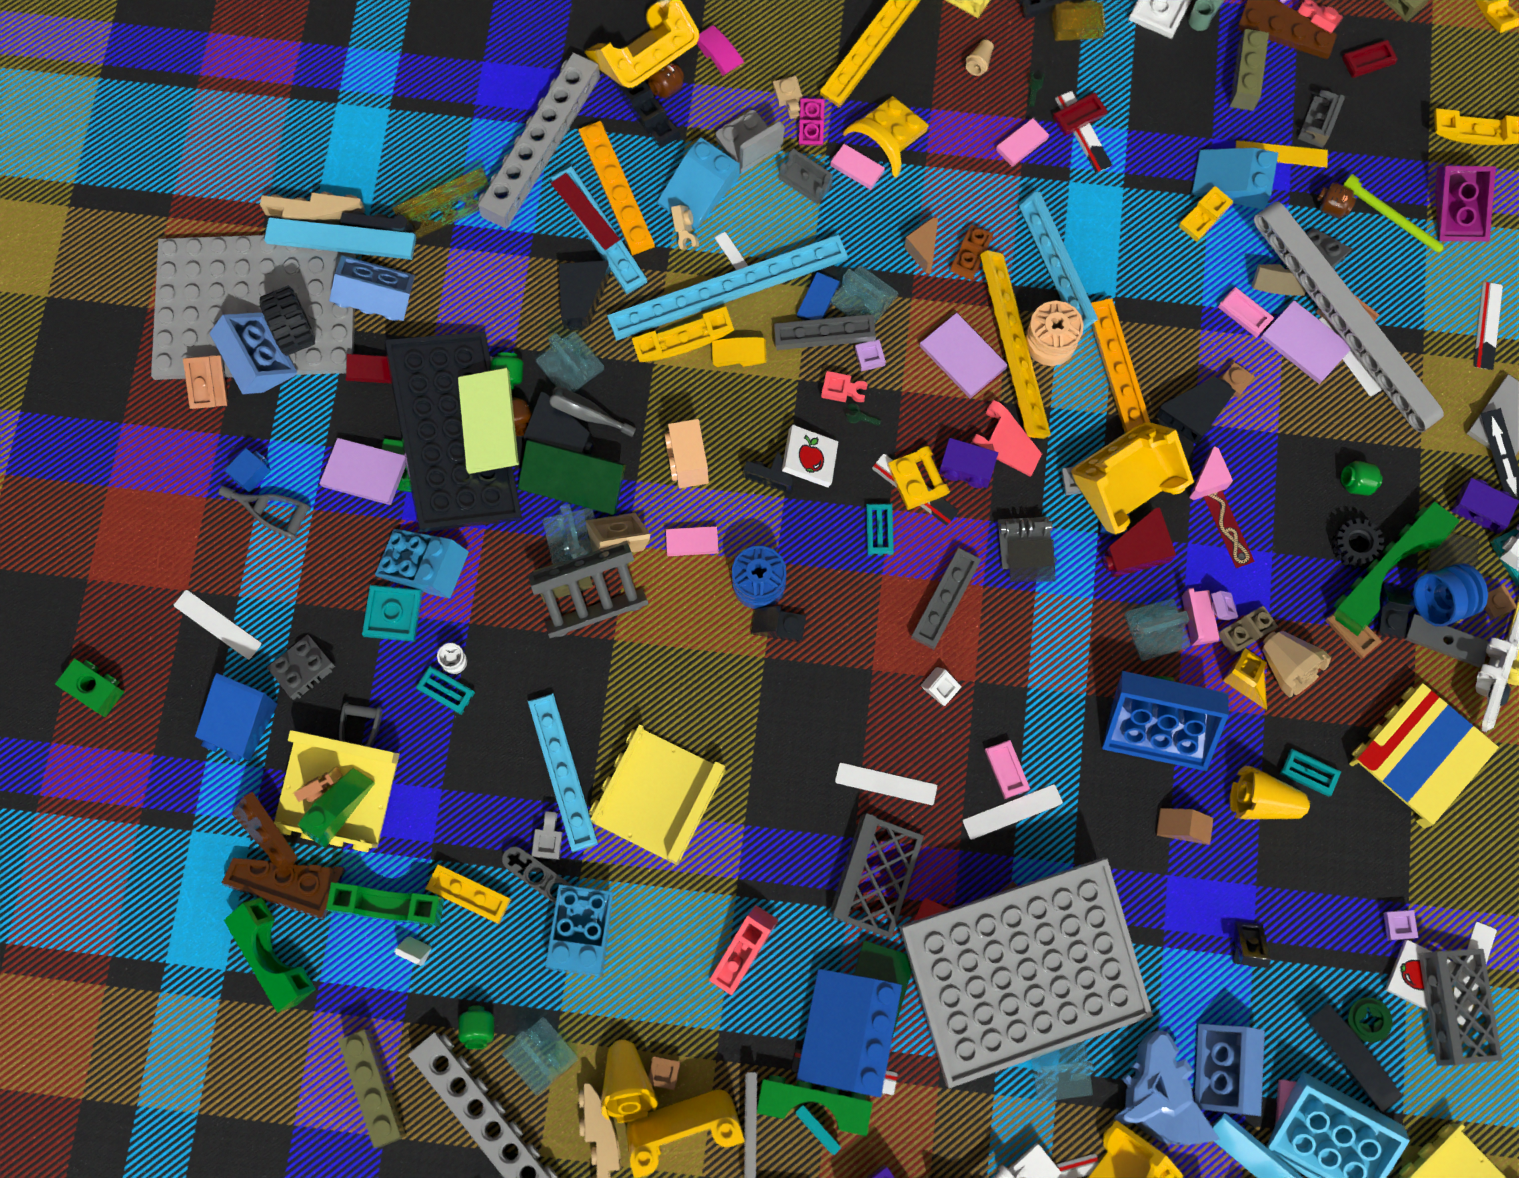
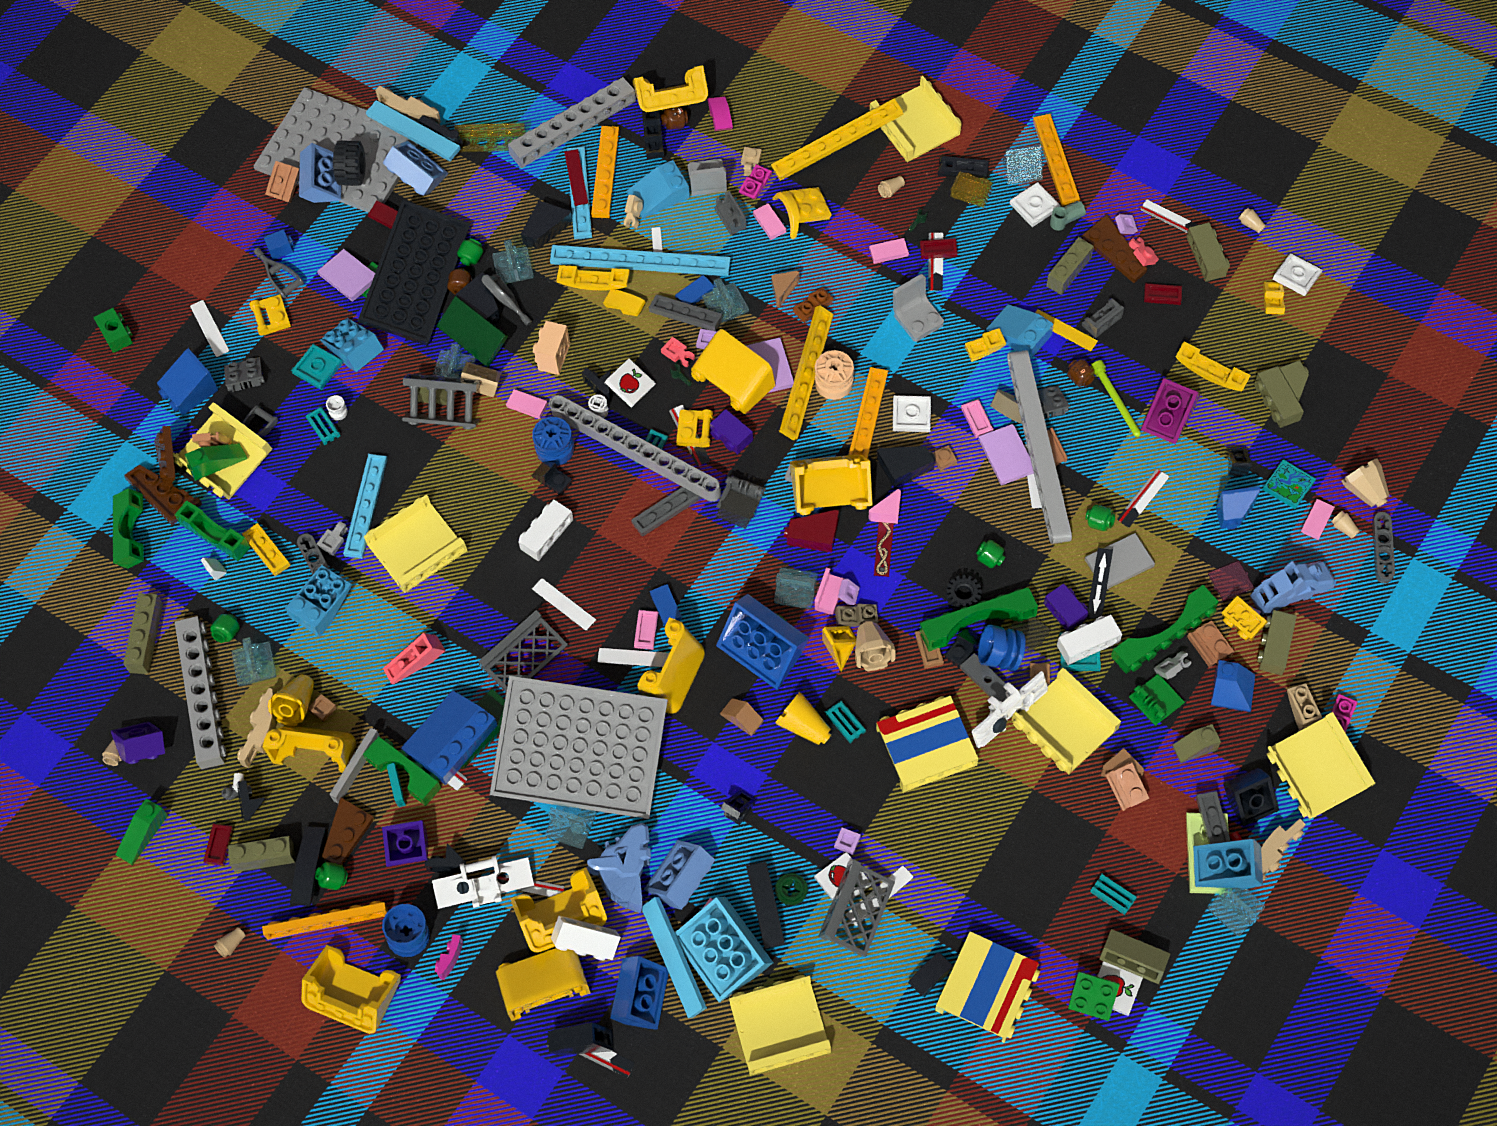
camera: 30 degrees right, 10 degrees down
(296, 564) = (276, 313): none -> yellow plate
(488, 421) = (438, 274): yellowish green tile -> none
(789, 509) = (598, 405): none -> white wheel
(811, 698) = (545, 530): none -> white brick
(875, 547) = (638, 454): none -> light grey beam
(931, 382) = (734, 371): none -> yellow windscreen
(941, 685) = (634, 561): white slope -> none
(1010, 441) = (767, 432): coral flag -> none
(1013, 726) = (665, 604): none -> blue tile
(1056, 257) = (865, 333): medium azure tile -> none
(1088, 838) = (678, 670): none -> yellow windscreen
(1104, 209) = (914, 310): none -> light grey piece
(1166, 340) = (911, 413): none -> white tile
(1460, 374) = (1100, 518): none -> green head

